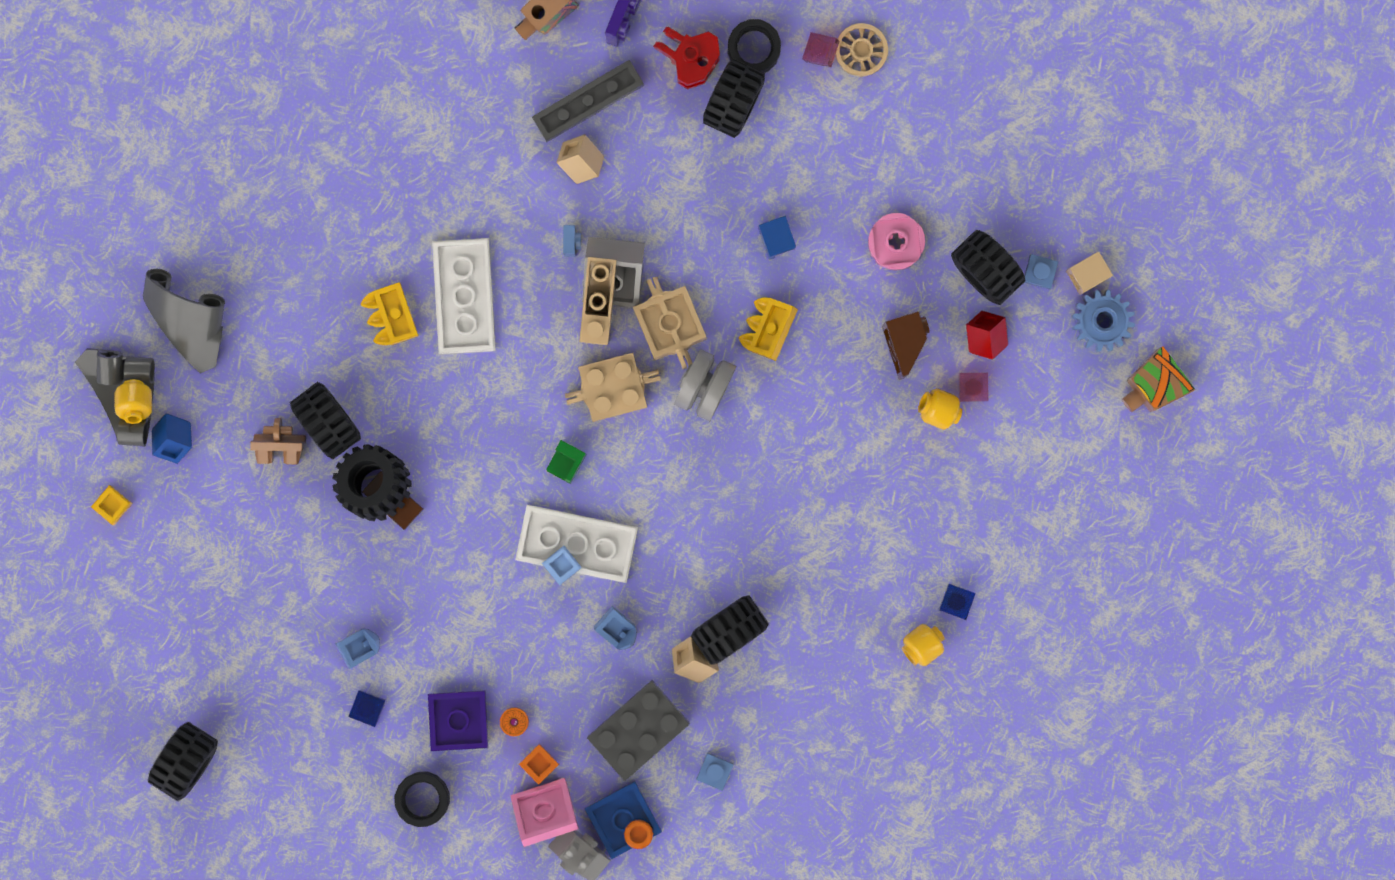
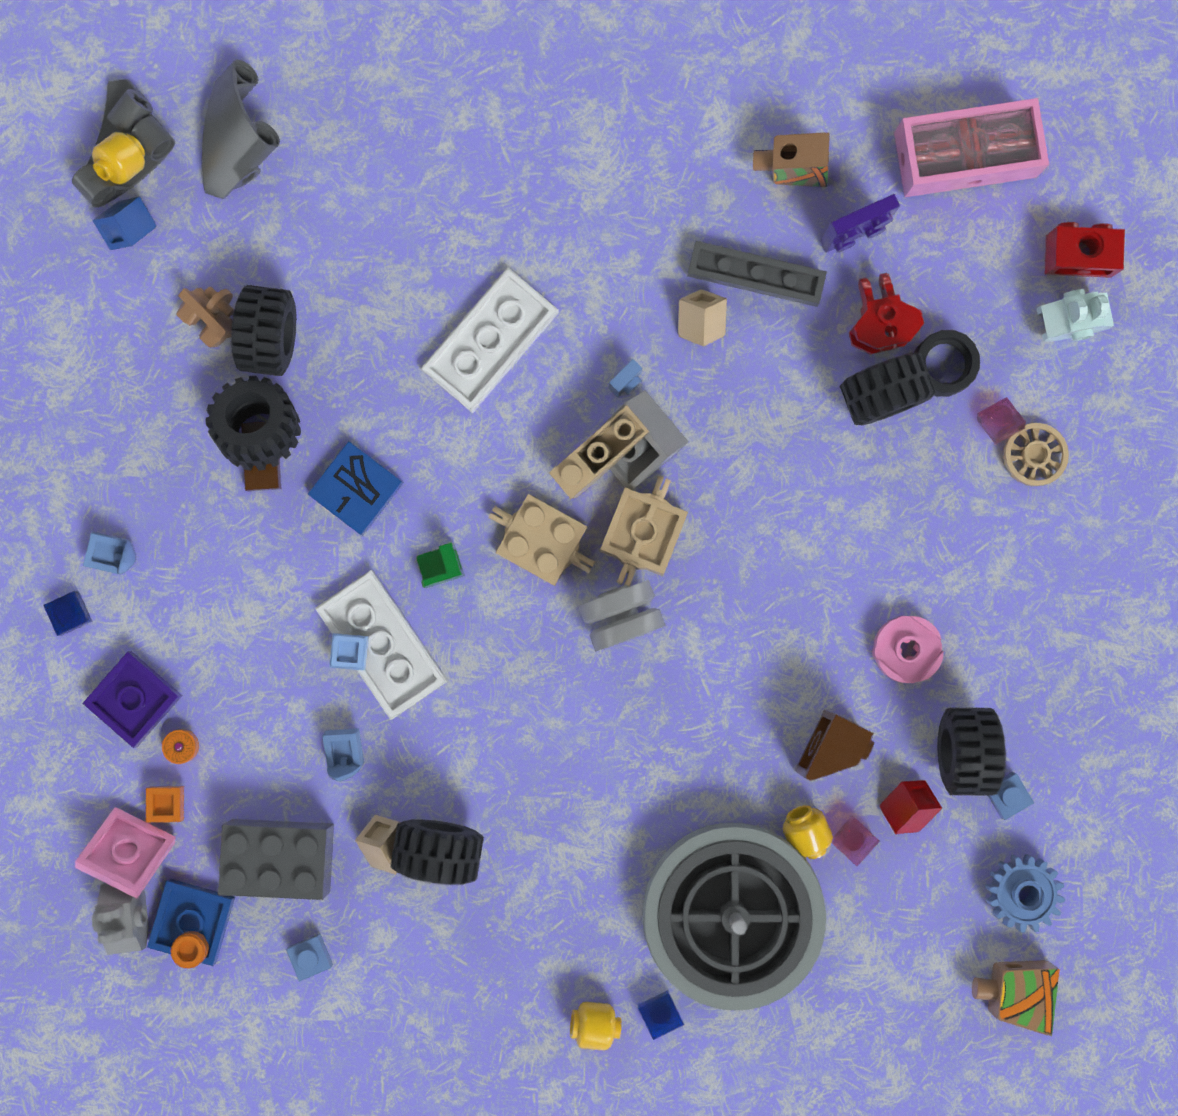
camera: 50 degrees right, 0 degrees up
(111, 505) = (22, 232): yellow tile -> none
(392, 314) = (413, 297): yellow plate -> none
(406, 814) = (10, 737): black tyre -> none
(469, 464) = (355, 488): none -> blue tile
(770, 328) = (726, 619): yellow plate -> none
(776, 237) = (808, 546): blue panel -> none
(942, 500) = (734, 916): none -> dark grey wheel
(1089, 273) = (1052, 840): tan panel -> none

